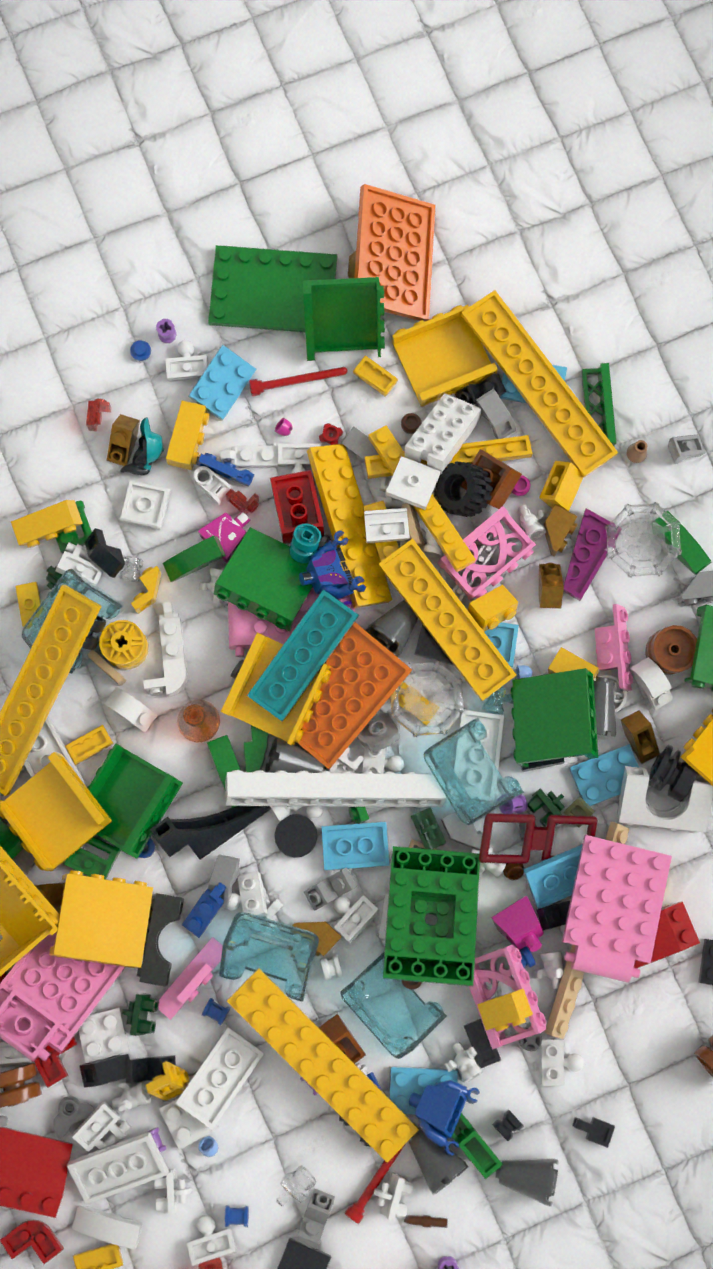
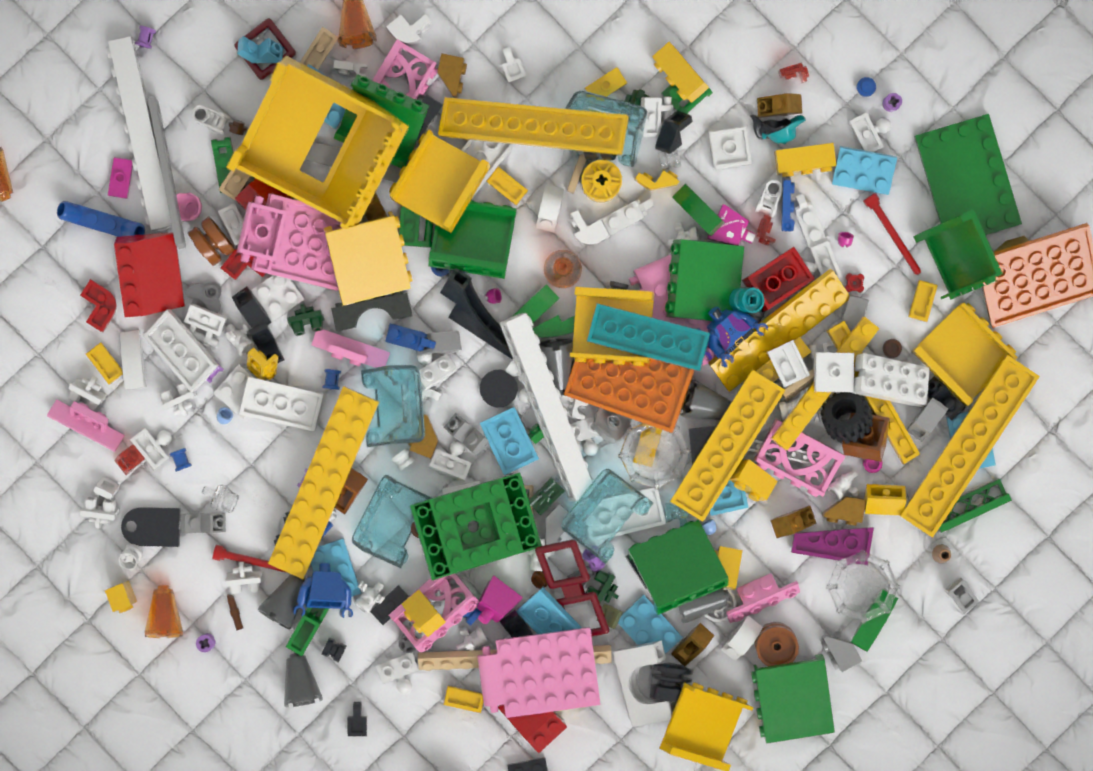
camera: 65 degrees right, 10 degrees up
(197, 802) = (494, 296): none -> dark pink hinge
(612, 1002) = (463, 699): none -> yellow plate

